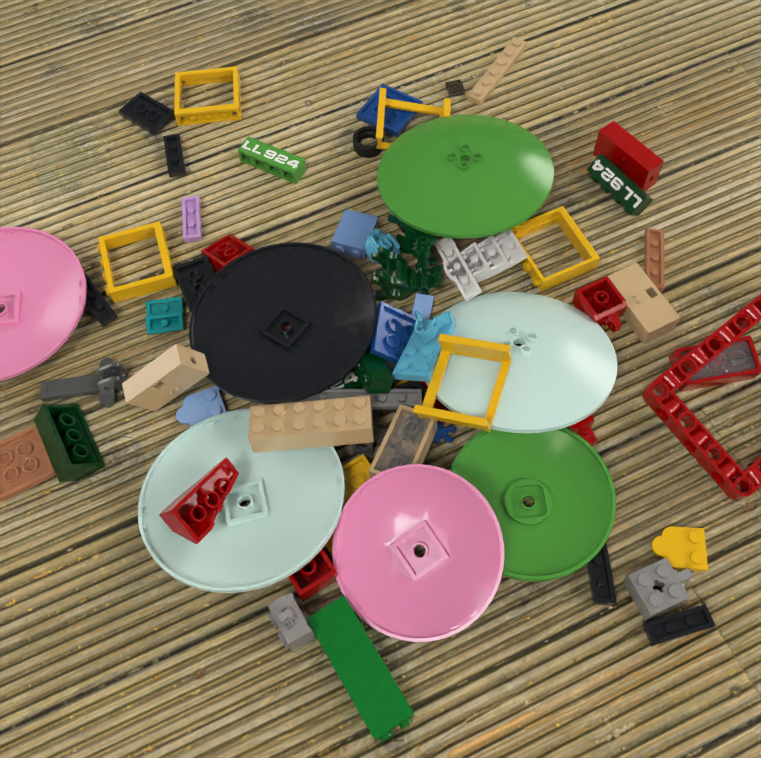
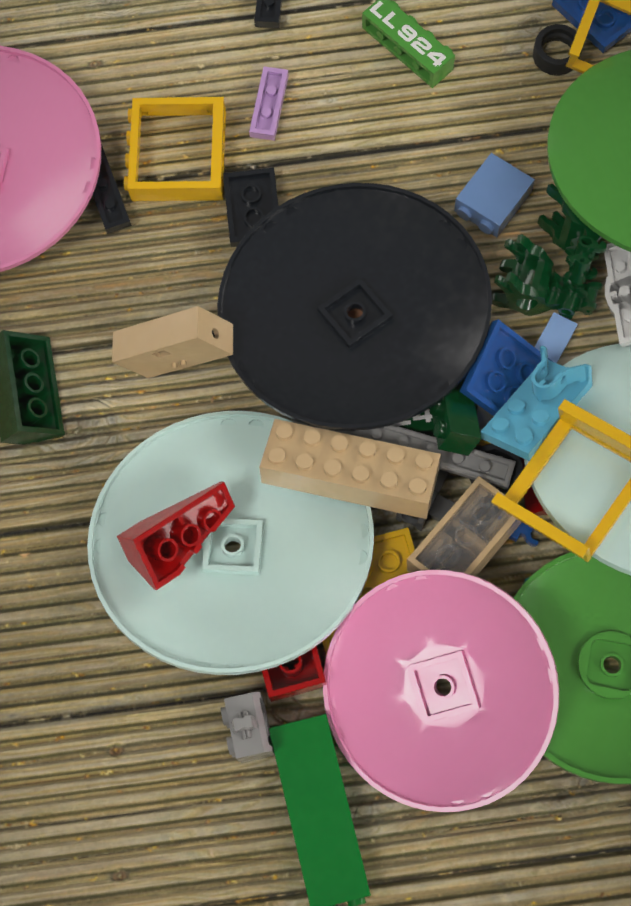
camera: 20 degrees right, 10 degrees up
(105, 383) = (70, 313): dark grey piece -> none
(165, 315) = (195, 242): teal slope -> none
(201, 406) = (209, 392): light blue plate -> none
(225, 251) = (304, 169): red slope -> none
(378, 239) = (526, 220): medium azure cylinder -> none

